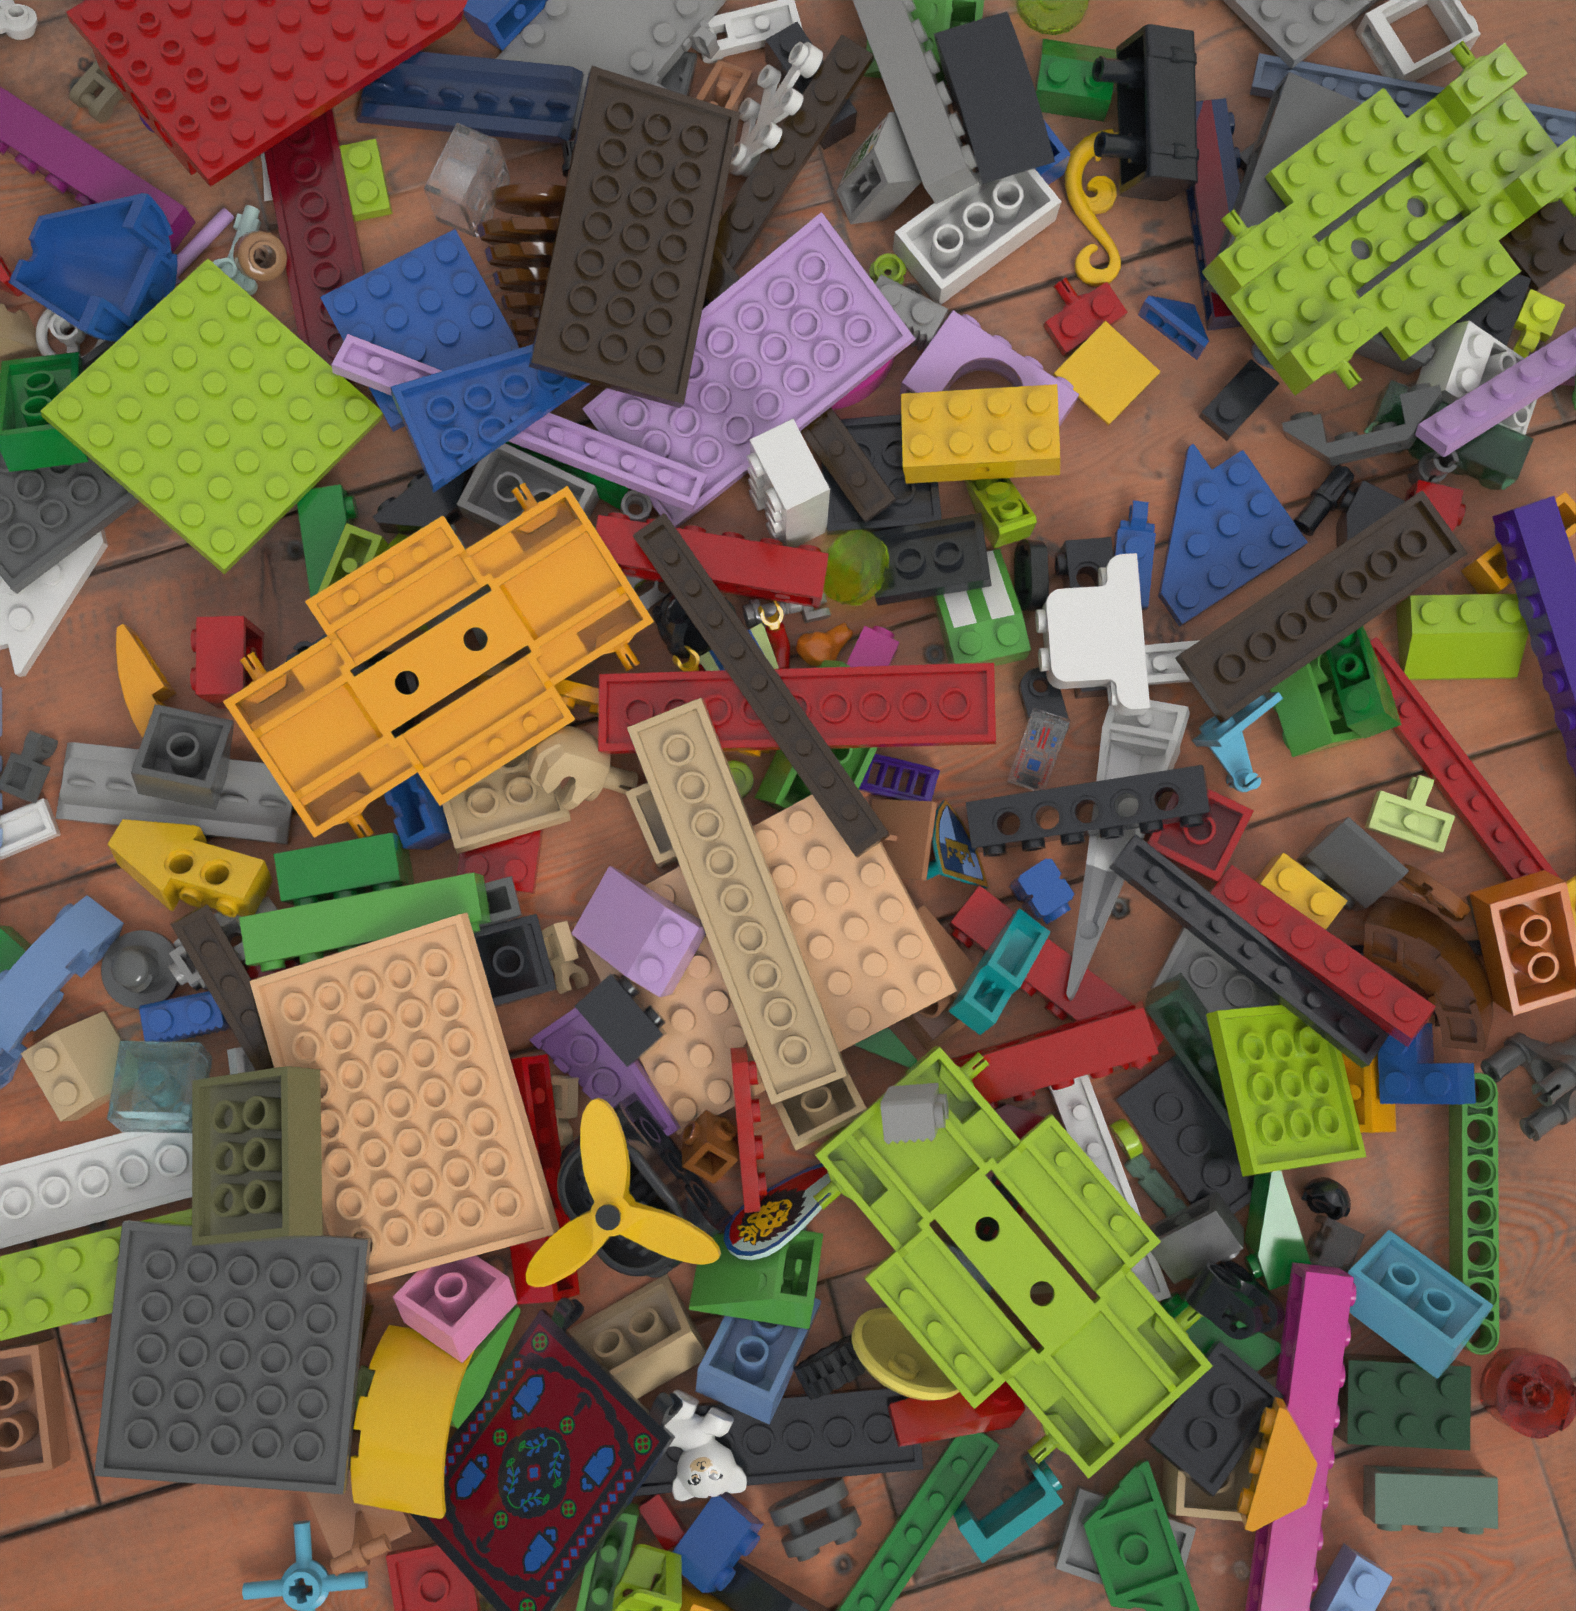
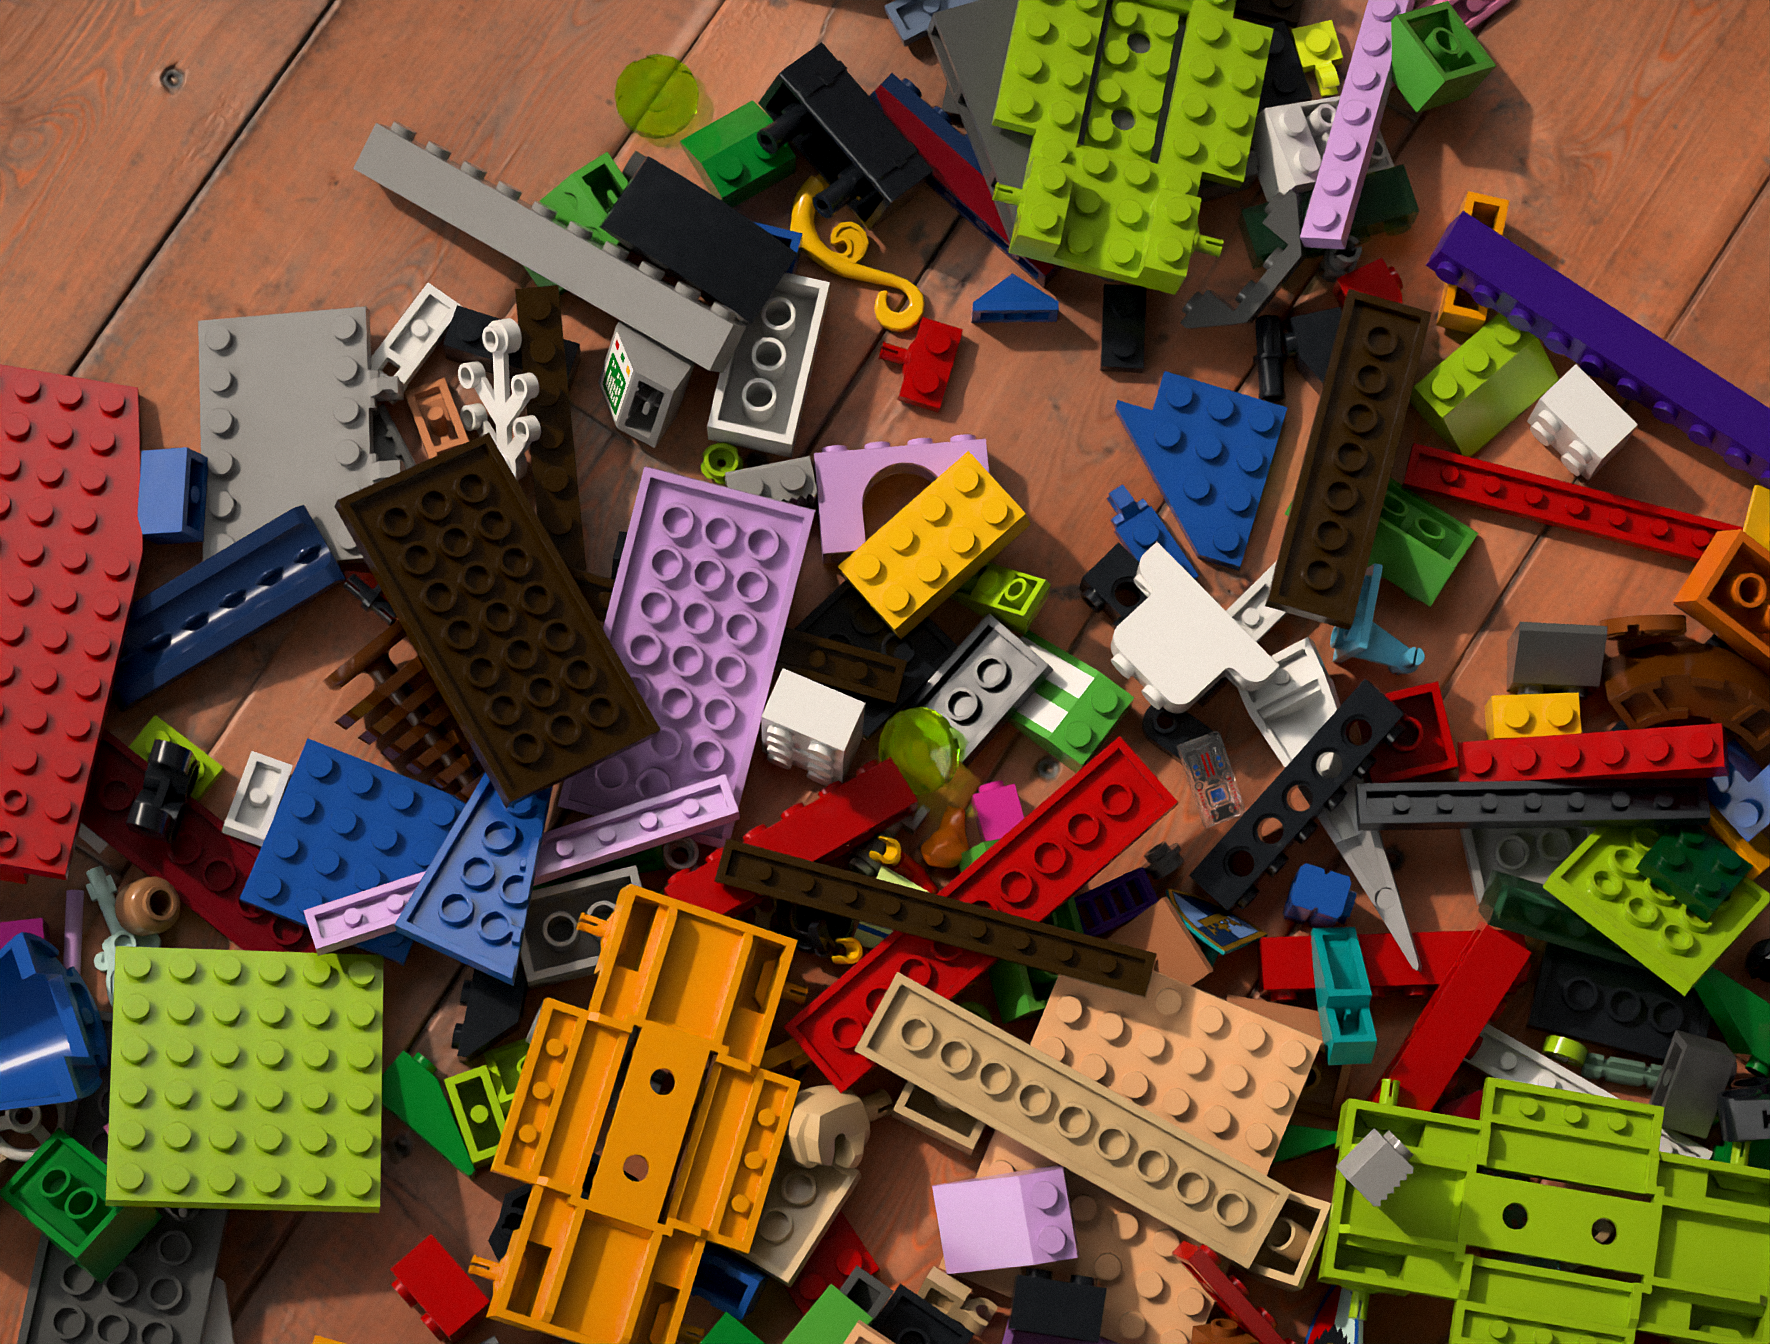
camera: 45 degrees left, 5 degrees down
(337, 185) = (165, 792): none -> black piece
(389, 241) = (257, 798): none -> white plate
(465, 179) = (281, 685): clear brick -> none
(958, 777) = (1162, 860): none -> dark grey plate
(1031, 574) = (1076, 630): black beam -> none
(1107, 372) = (992, 398): yellow piece -> none
(1326, 1091) = (1694, 868): none -> dark green plate
(1362, 686) = (1439, 498): green slope -> none
(1410, 818) = (1572, 576): yellowish green plate -> none
(1509, 716) = (1581, 423): none -> white brick

